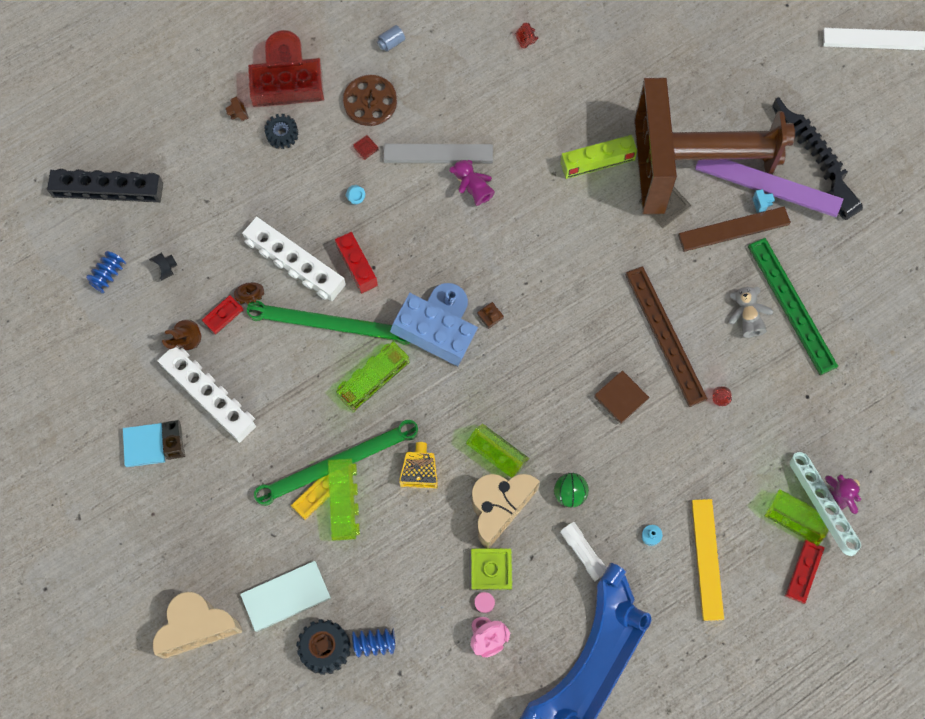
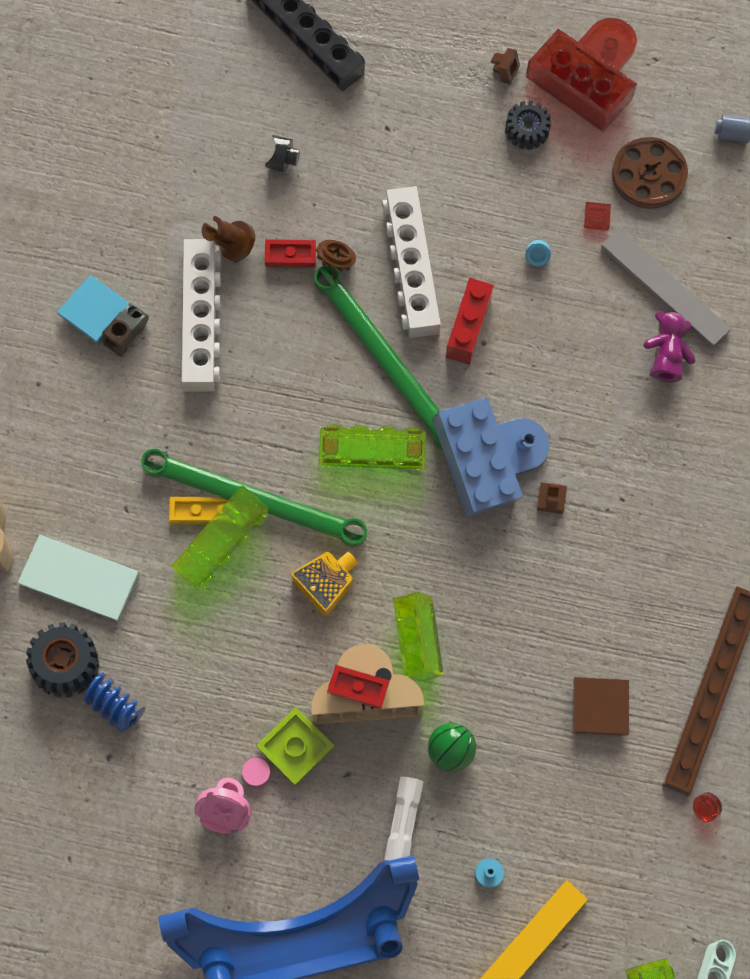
camera: 40 degrees right, 0 degrees up
(105, 271) = (222, 110): blue piece -> none
(498, 504) = (358, 687): none -> red plate

